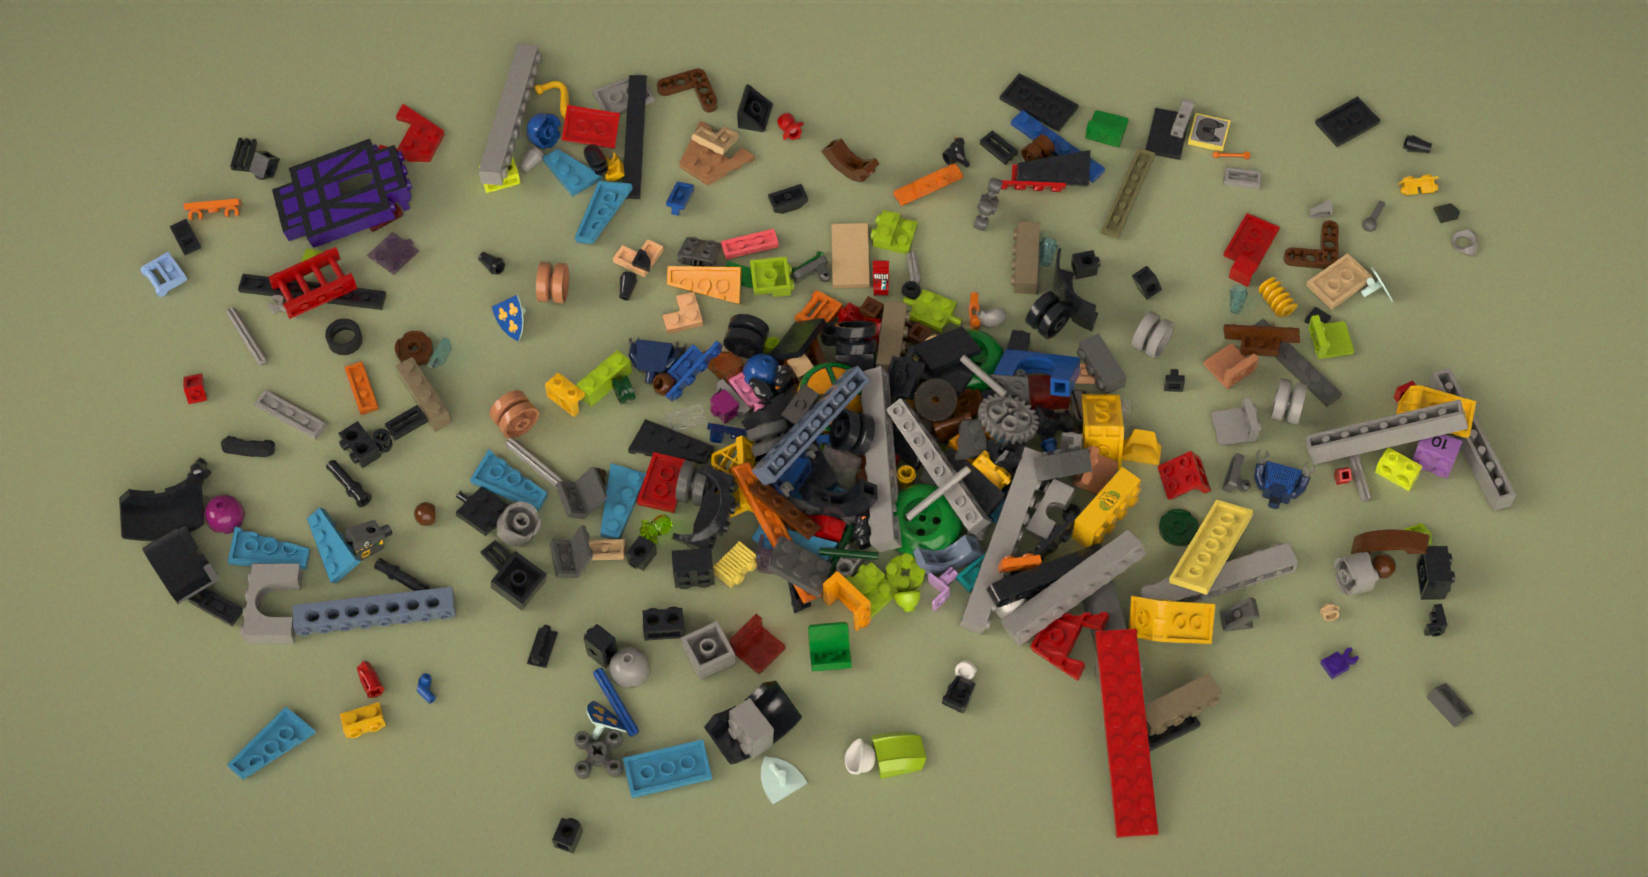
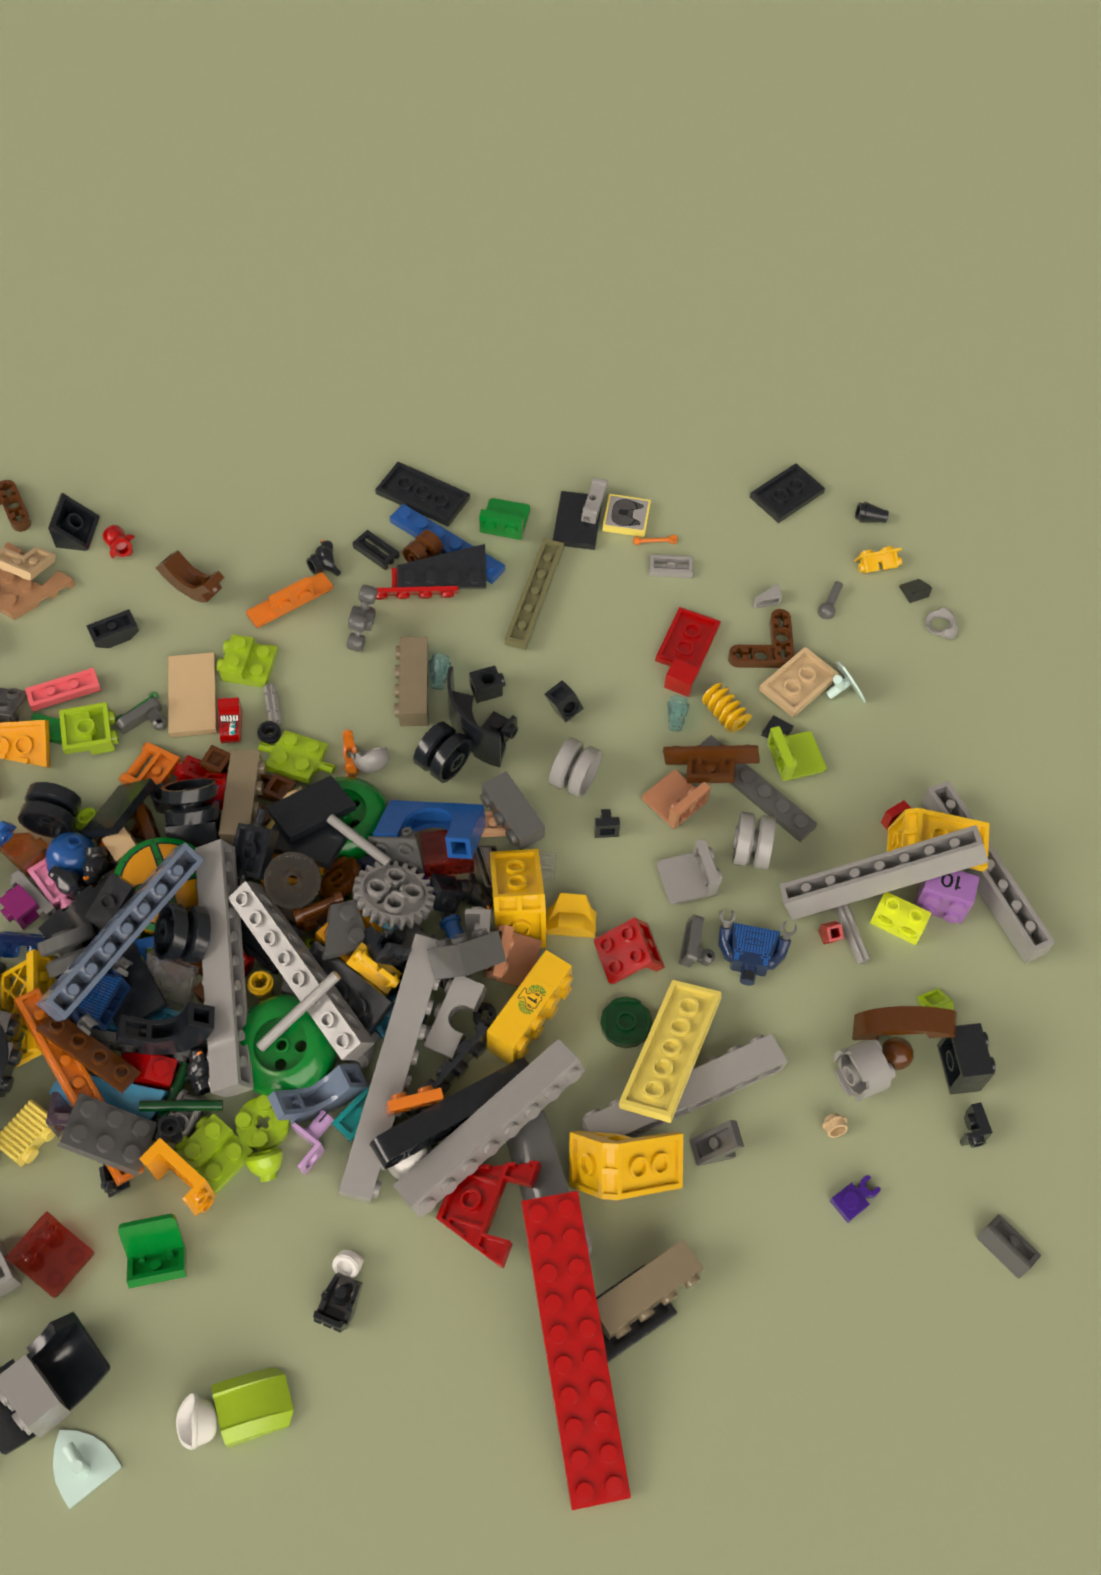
camera: 10 degrees left, 0 degrees up
(842, 563) = (165, 1123): none -> black plate
(1019, 340) = (407, 788): black brick -> none
(1096, 298) = (502, 726): none -> black bracket

